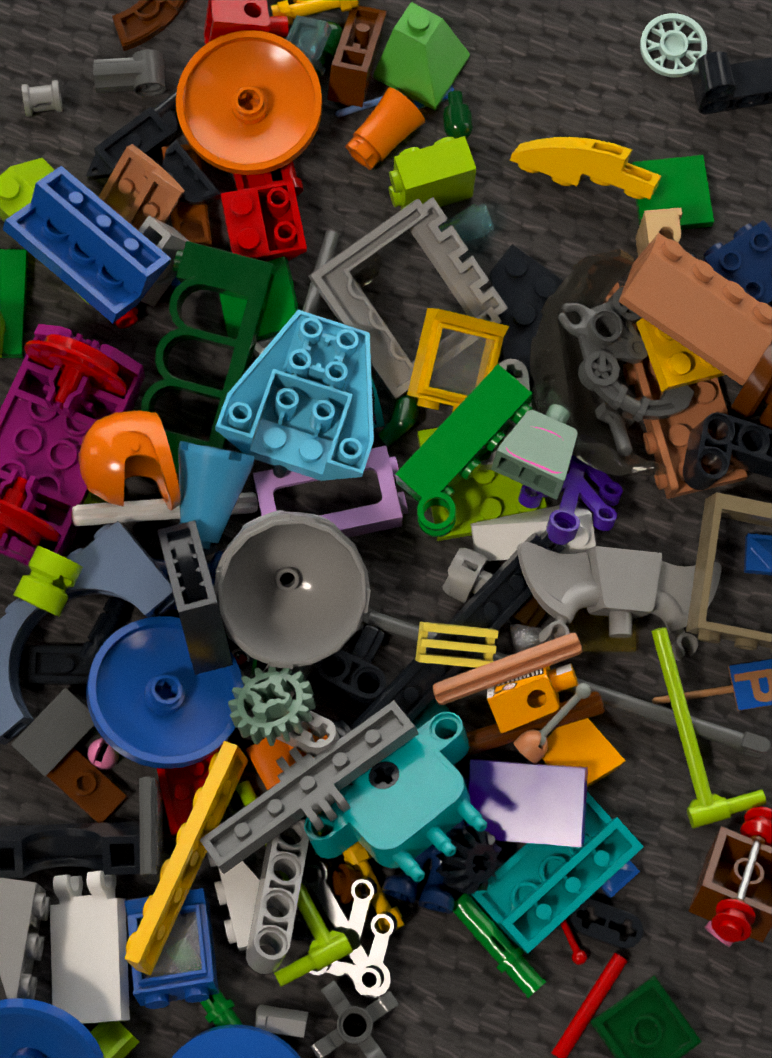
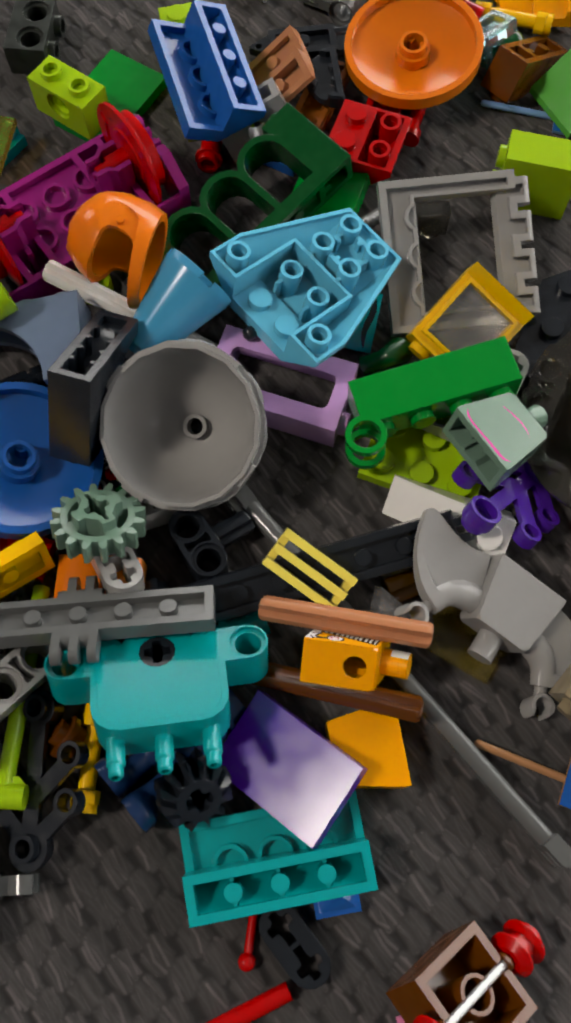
camera: 35 degrees right, 5 degrees down
(384, 128) = (531, 115): orange plant -> none
(466, 574) = (357, 518): light grey piece -> none
(471, 223) = (550, 234): clear light blue cone -> none
(498, 945) = (171, 899): green pin -> none
(534, 743) = (327, 711): hinge -> none
(708, 806) = (470, 885): lime bar -> none

